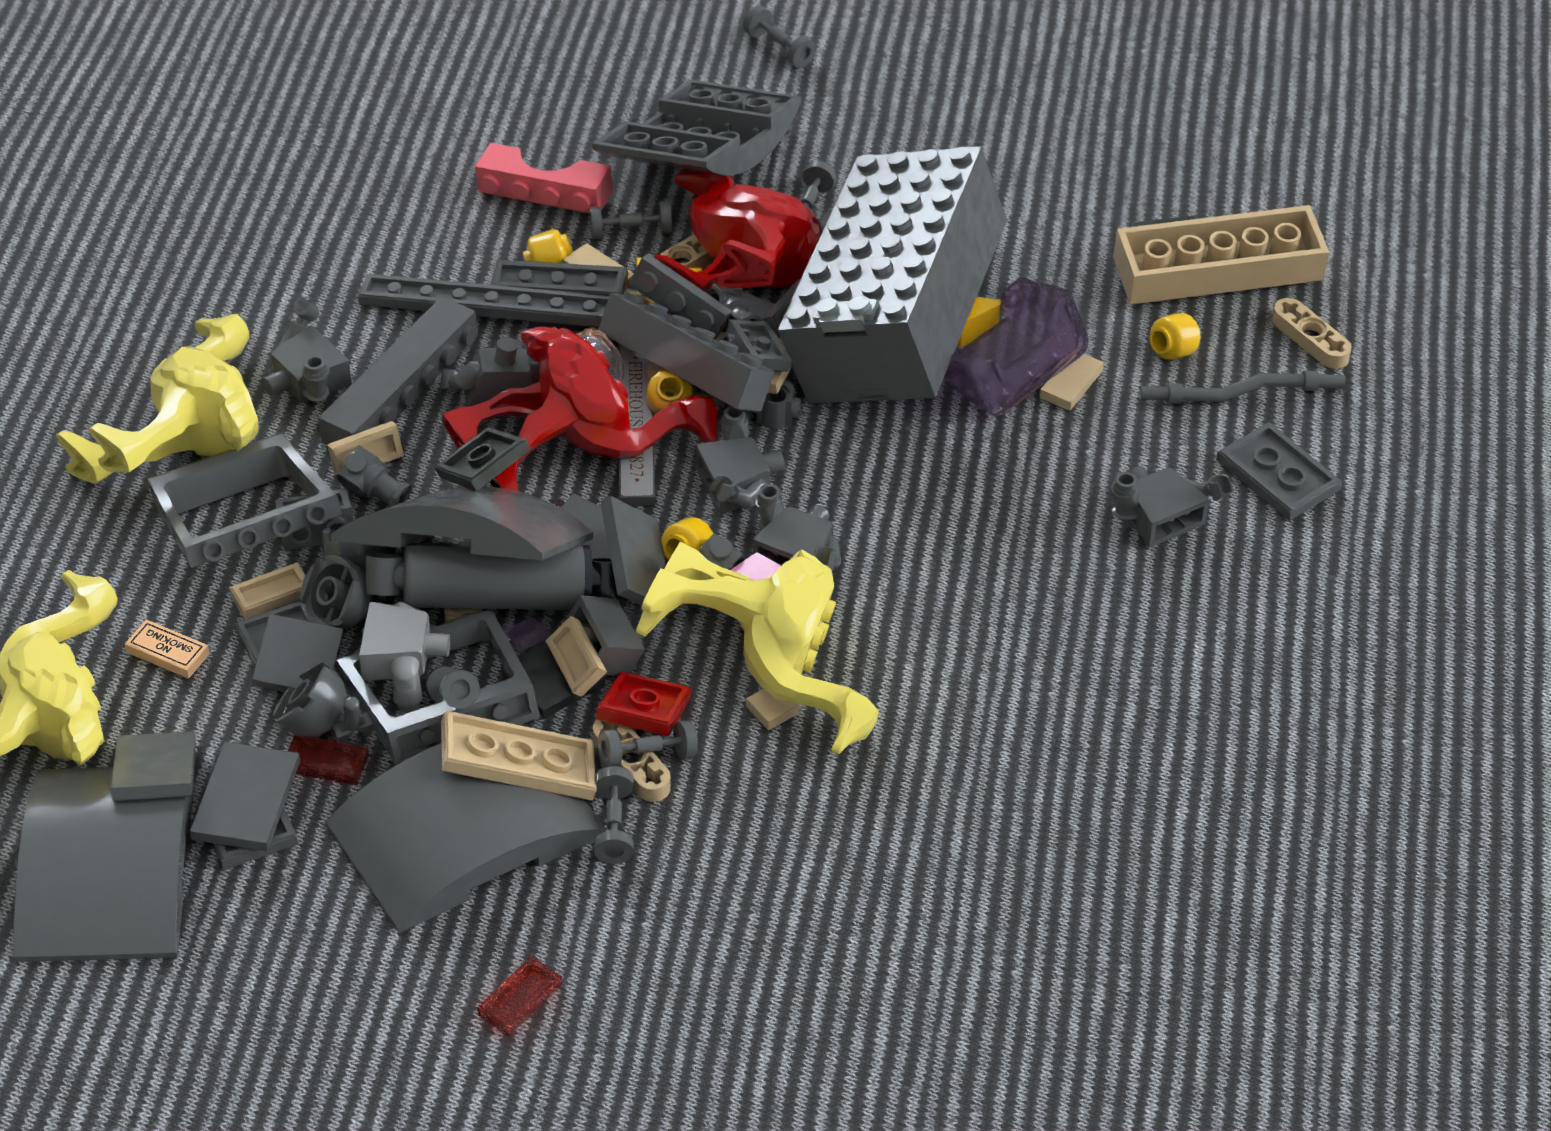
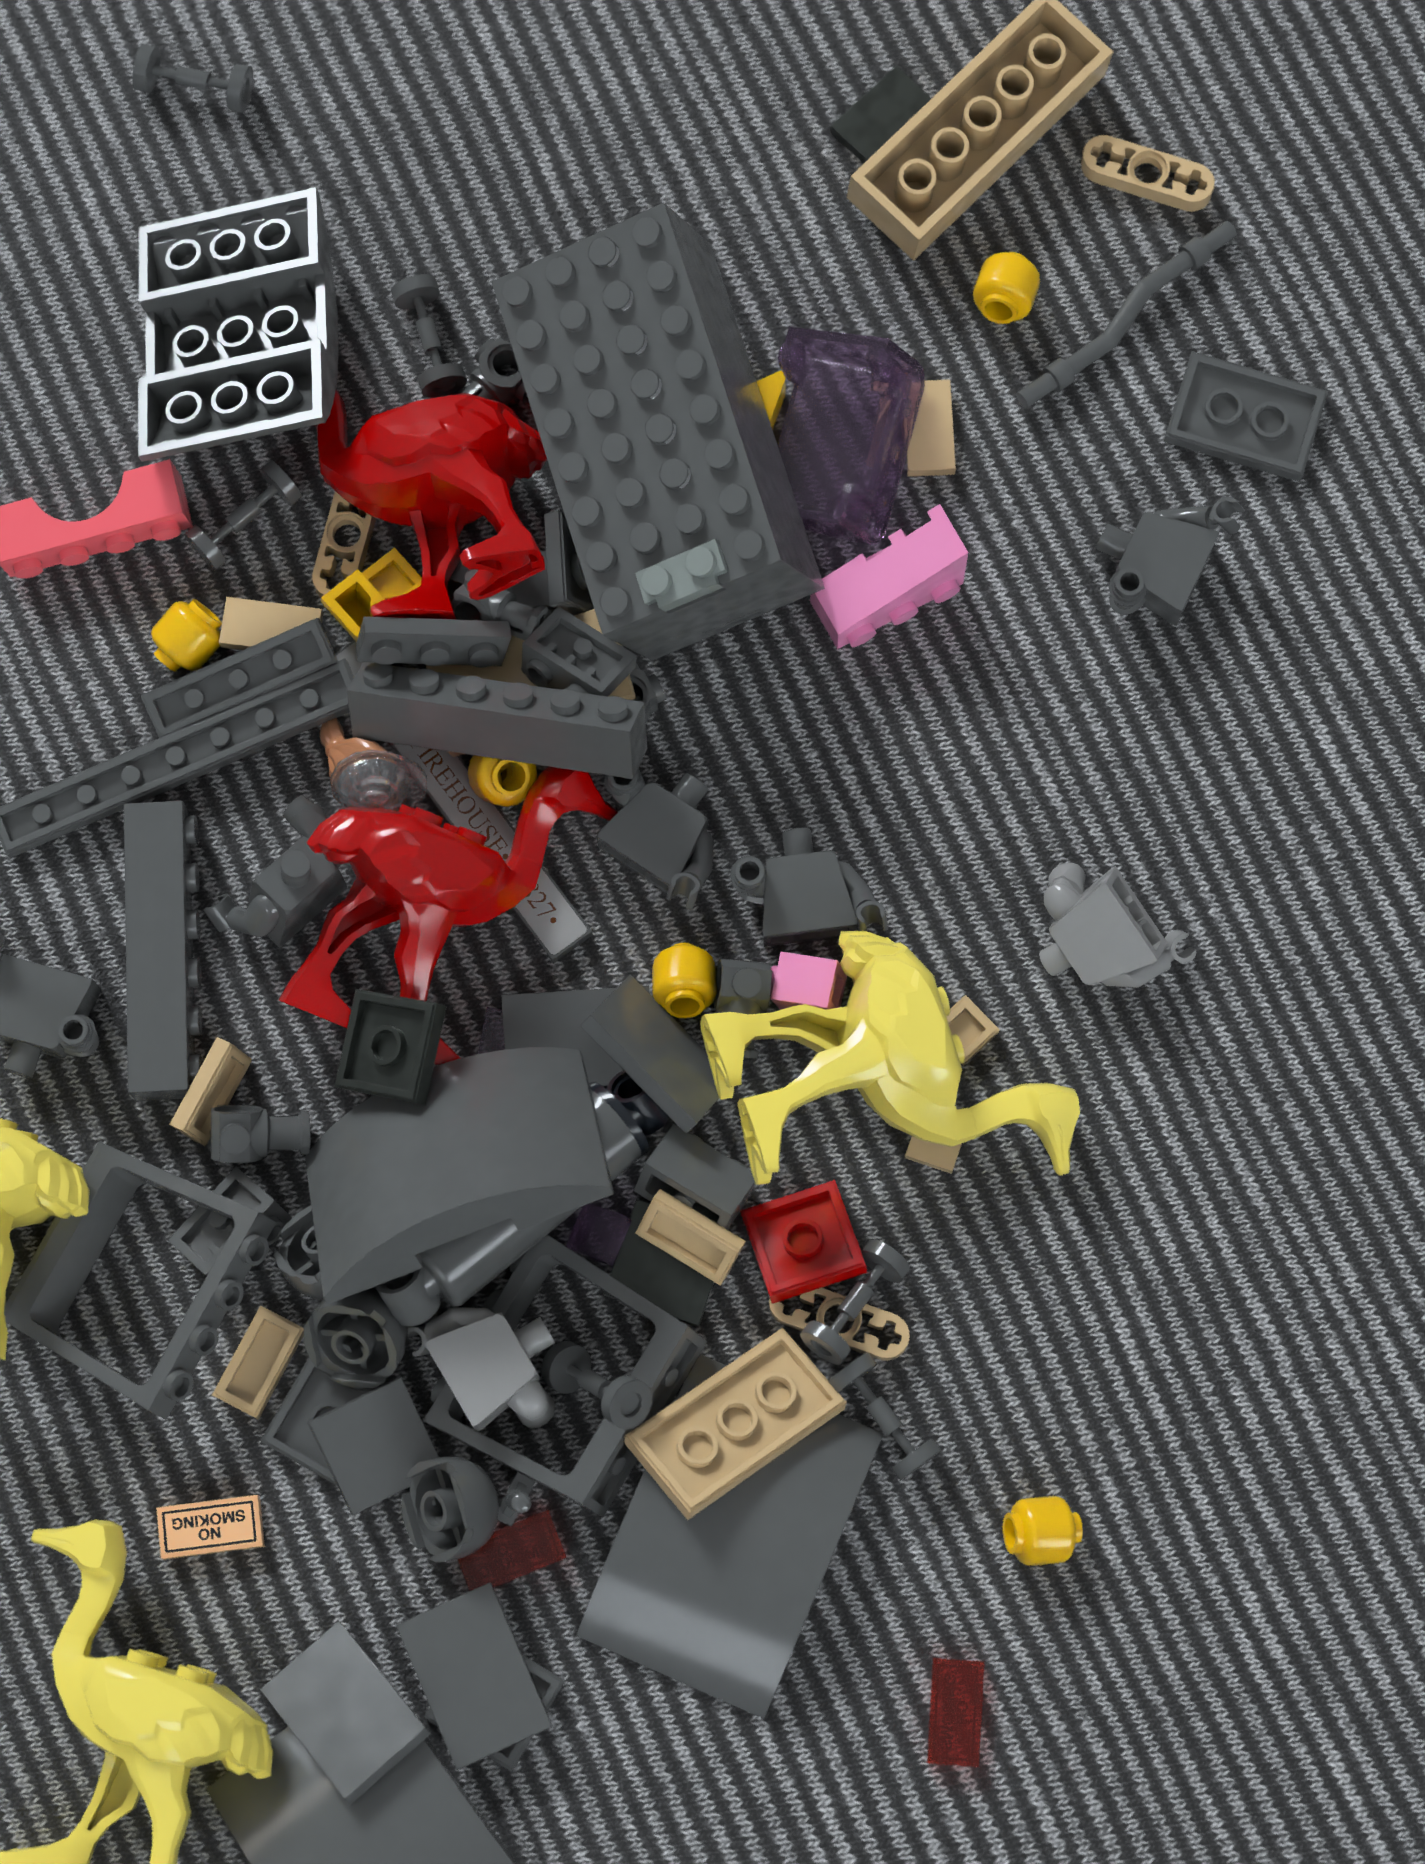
camera: 30 degrees left, 30 degrees up
(660, 926) = (1042, 1530): none -> yellow head
(839, 663) = (971, 1026): none -> tan tile
(969, 650) = (1105, 931): none -> light grey torso
(983, 426) = (892, 581): none -> bright pink wedge

